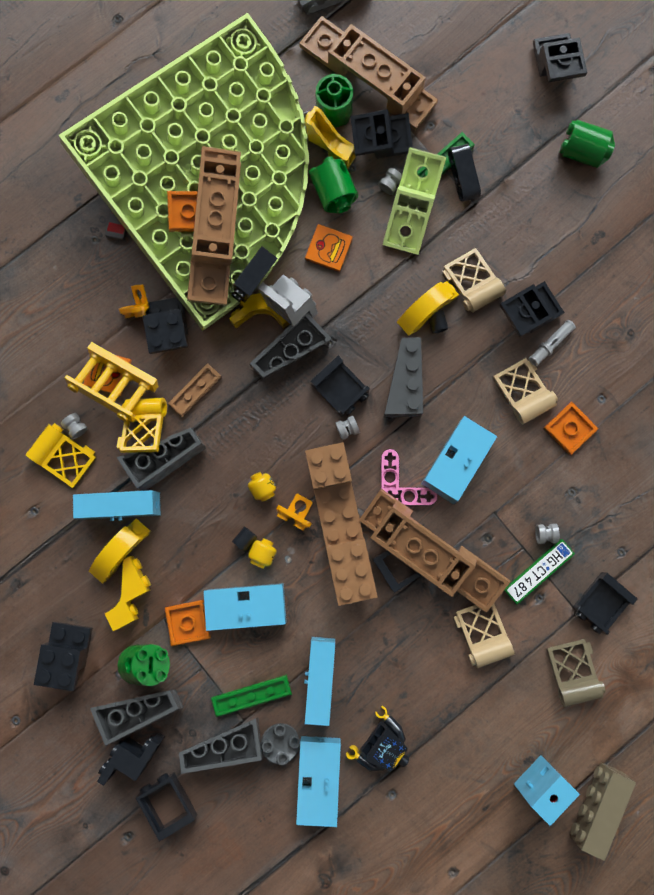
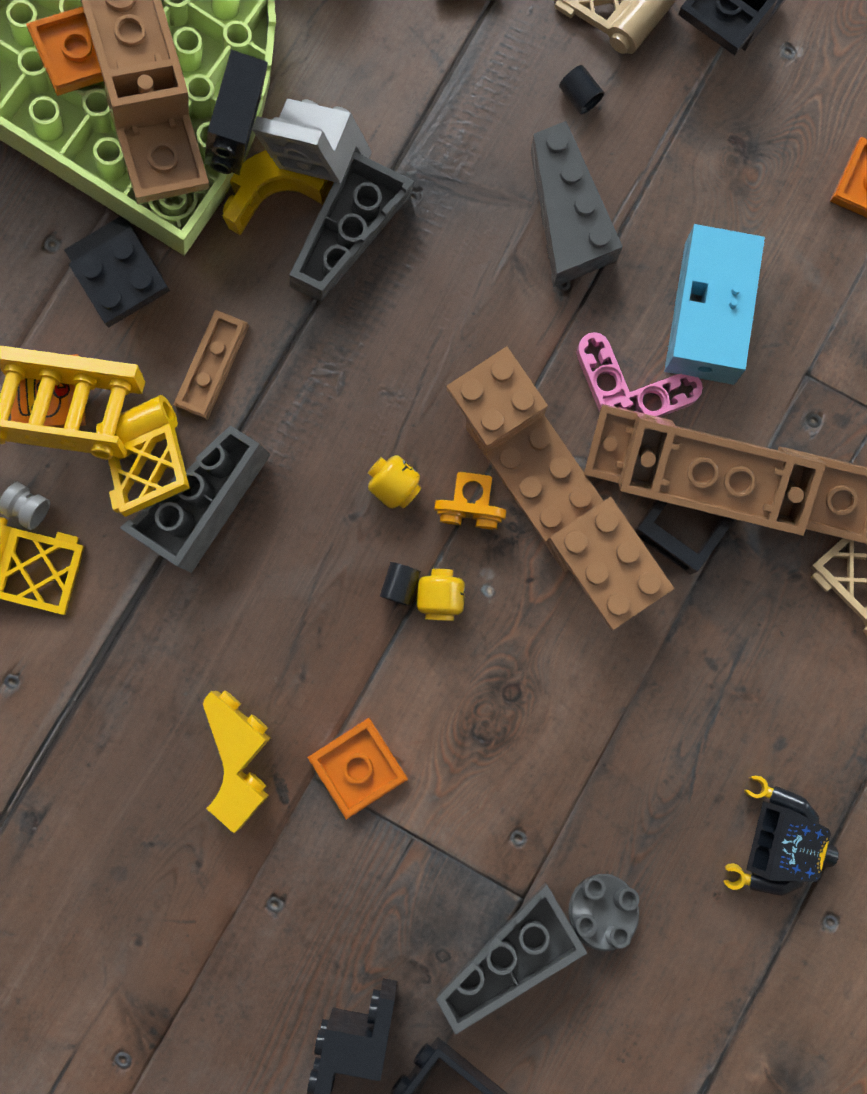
camera: 20 degrees left, 0 degrees up
(63, 656) = (162, 914): black bracket -> none
(116, 505) = (151, 610): medium azure brick -> none
(117, 549) = (183, 690): yellow arch -> none
(131, 715) = (320, 971): dark grey wedge -> none
(141, 305) = (56, 260): light orange bracket -> none
(144, 664) = (312, 869): green cylinder -> none
(244, 607) = (448, 699): medium azure brick -> none
(251, 695) = (519, 849): green tile -> none
(318, 781) = (699, 951): medium azure brick -> none
(320, 681) = (632, 775): medium azure brick -> none
(328, 248) = (345, 38): orange tile -> none
(340, 387) = (459, 262): black panel -> none
(351, 425) = (501, 325): light grey wheel -> none
(426, 306) = (552, 69): yellow arch -> none
(533, 404) = (801, 161): tan piece -> none
(546, 349) = (784, 63): light grey pin -> none

